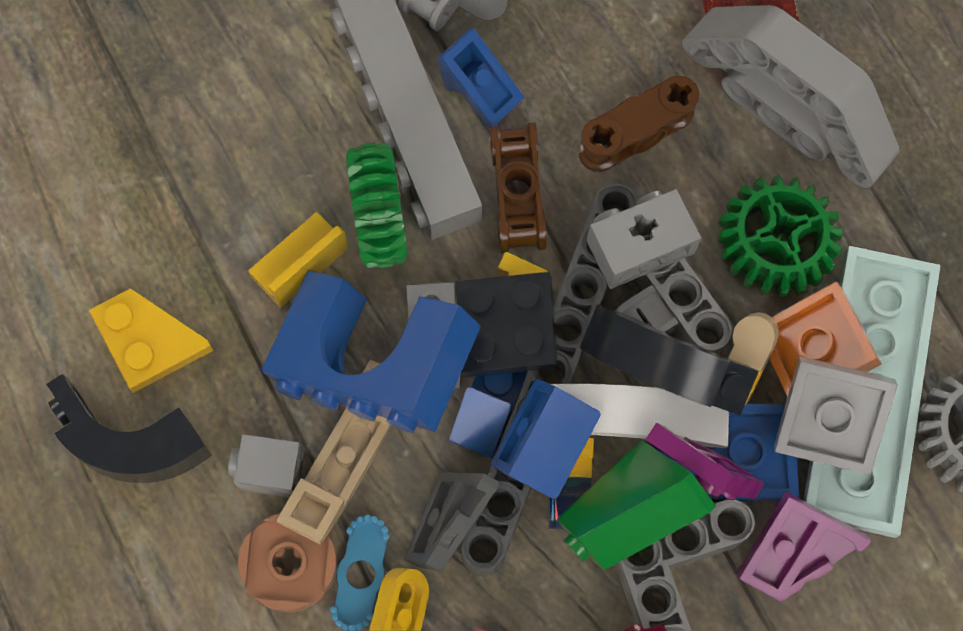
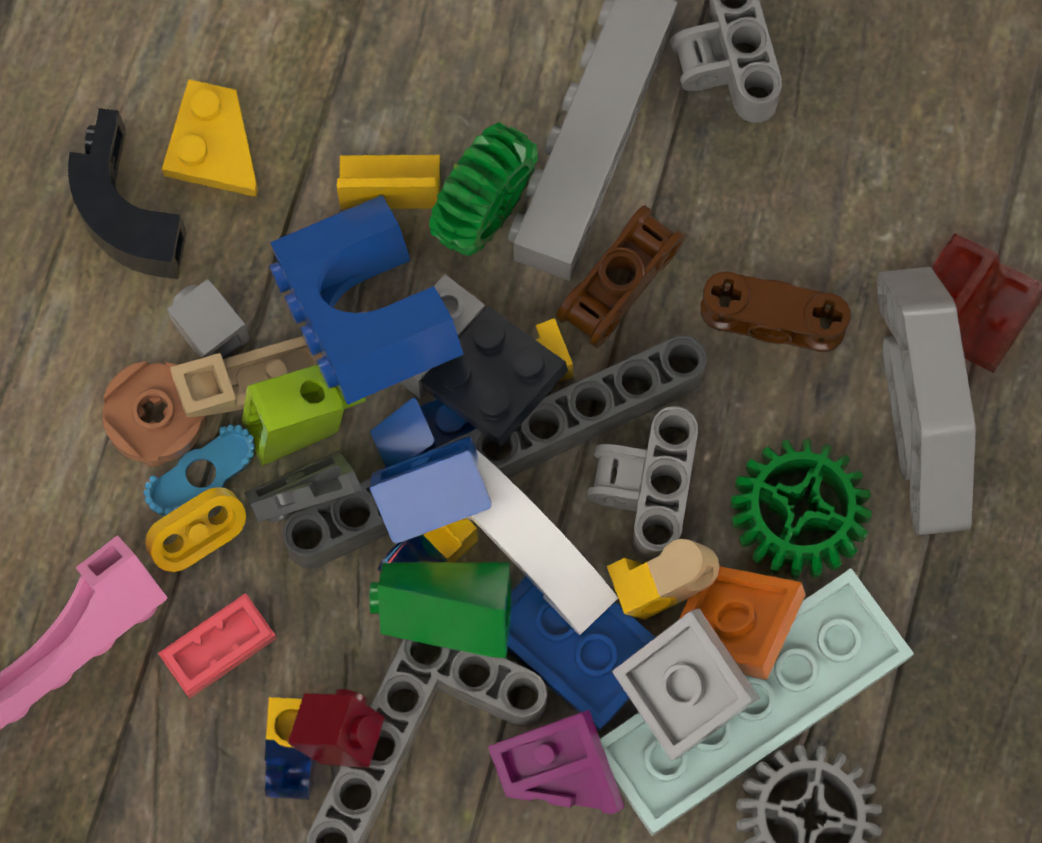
camera: 45 degrees right, 0 degrees up
(390, 474) = (292, 412): none -> lime torso
(477, 74) = (675, 158): blue slope -> none
(628, 257) = (689, 420): light grey brick -> none
(668, 361) = (580, 511): black arch -> none
(712, 470) = (536, 628): magenta wing -> none

